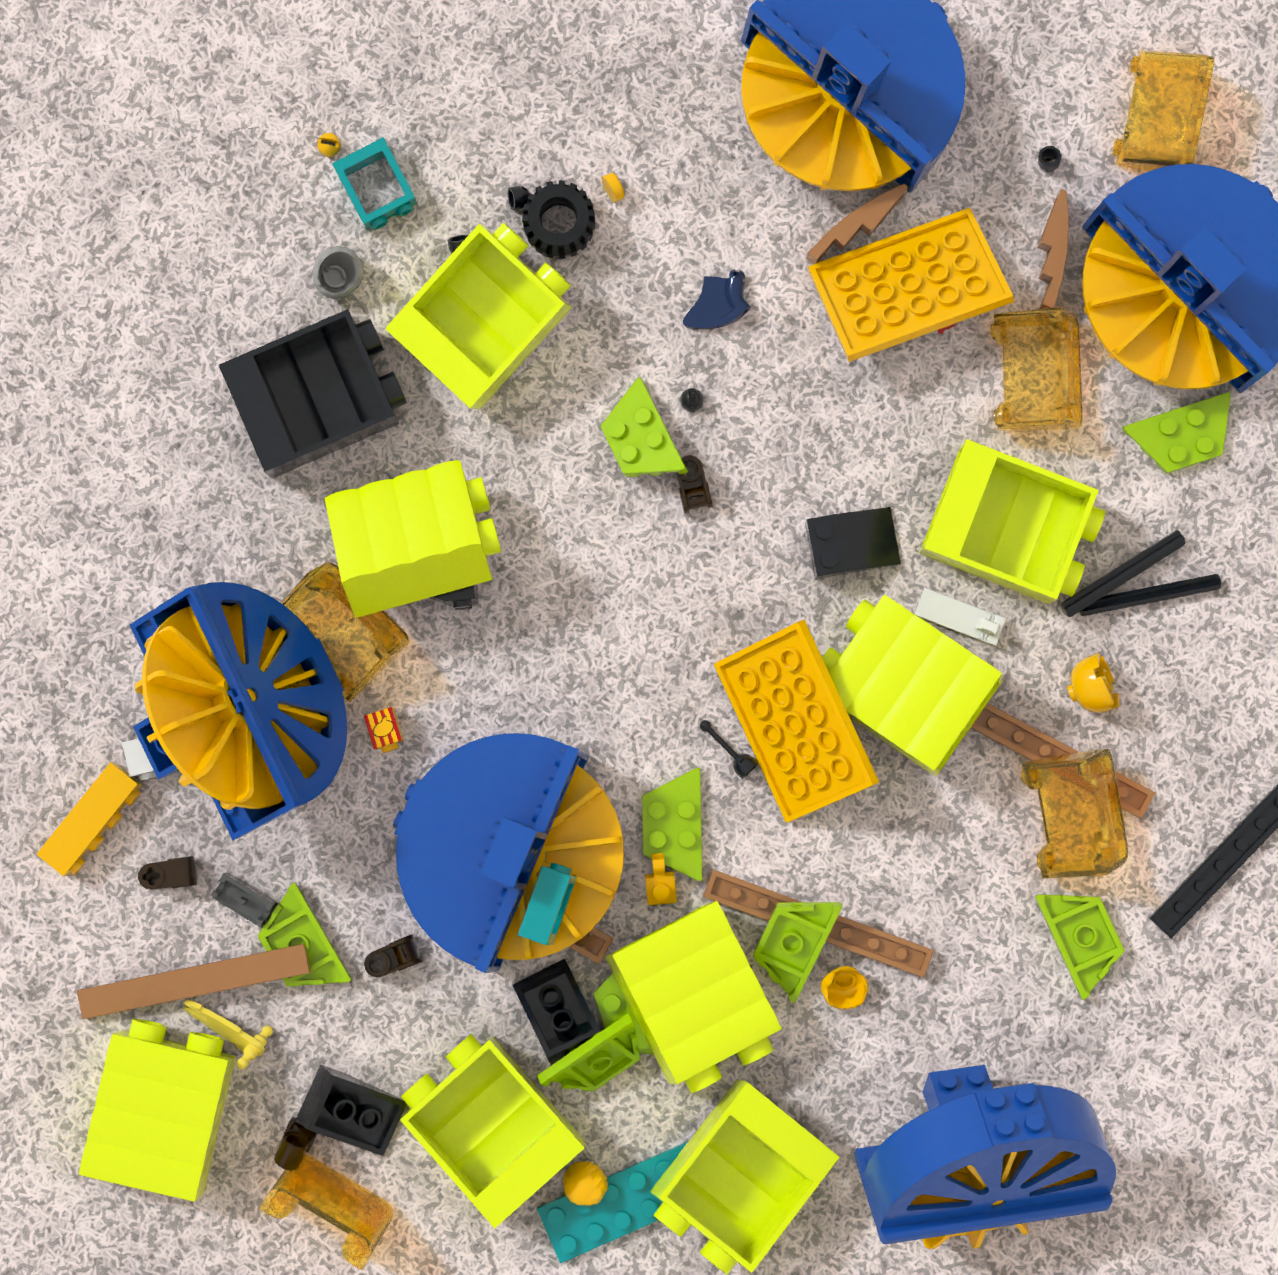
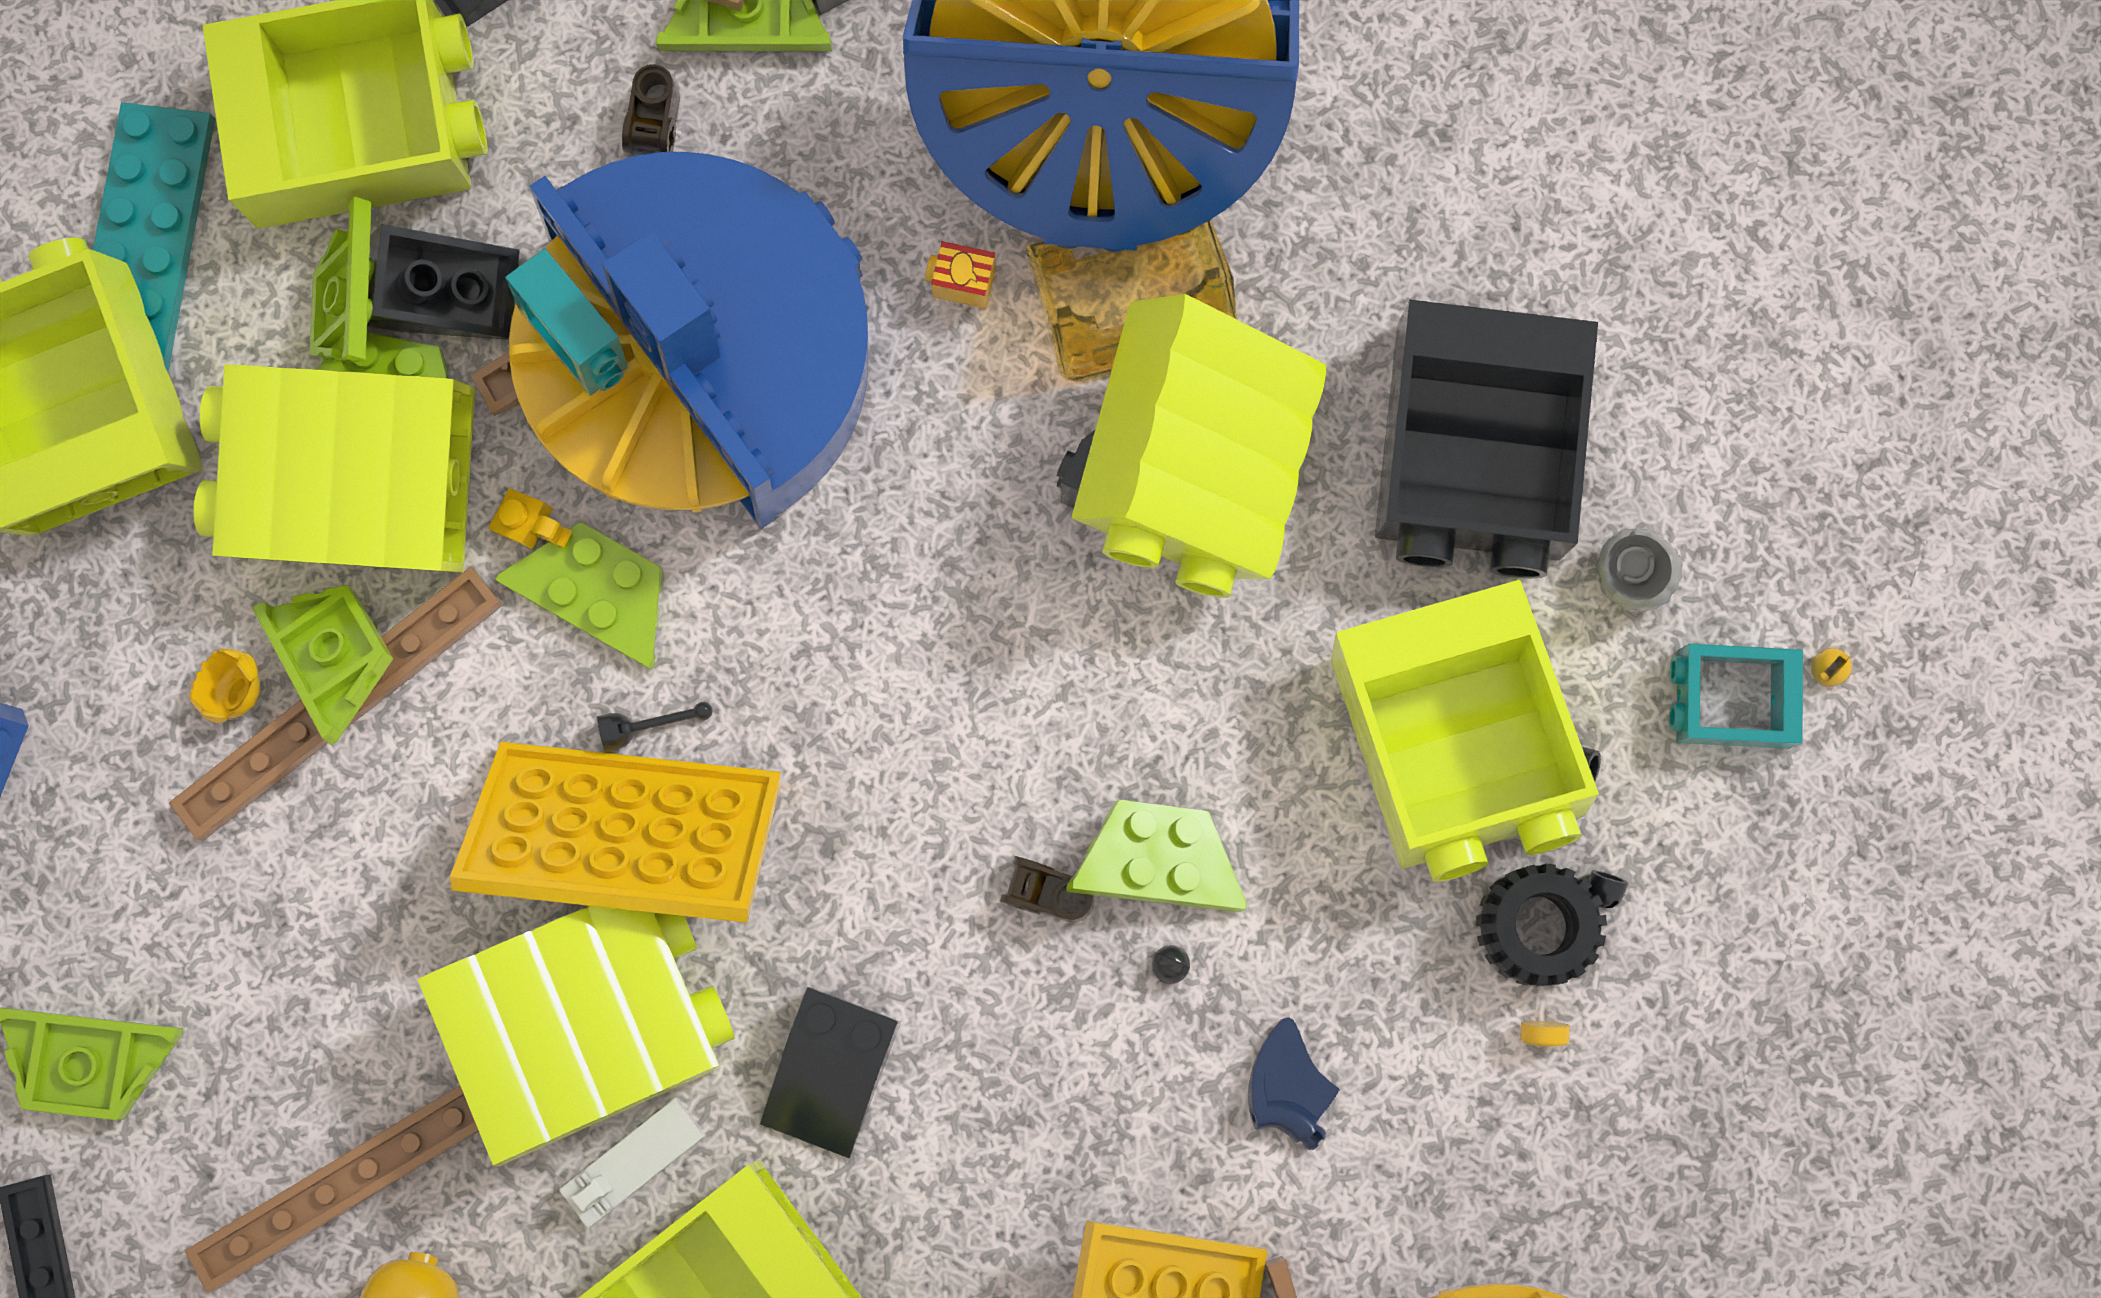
camera: 120 degrees right, 5 degrees down
(585, 1183) = (195, 189): yellow hair -> none
(1078, 814) = (241, 1159): clear yellow windscreen -> none

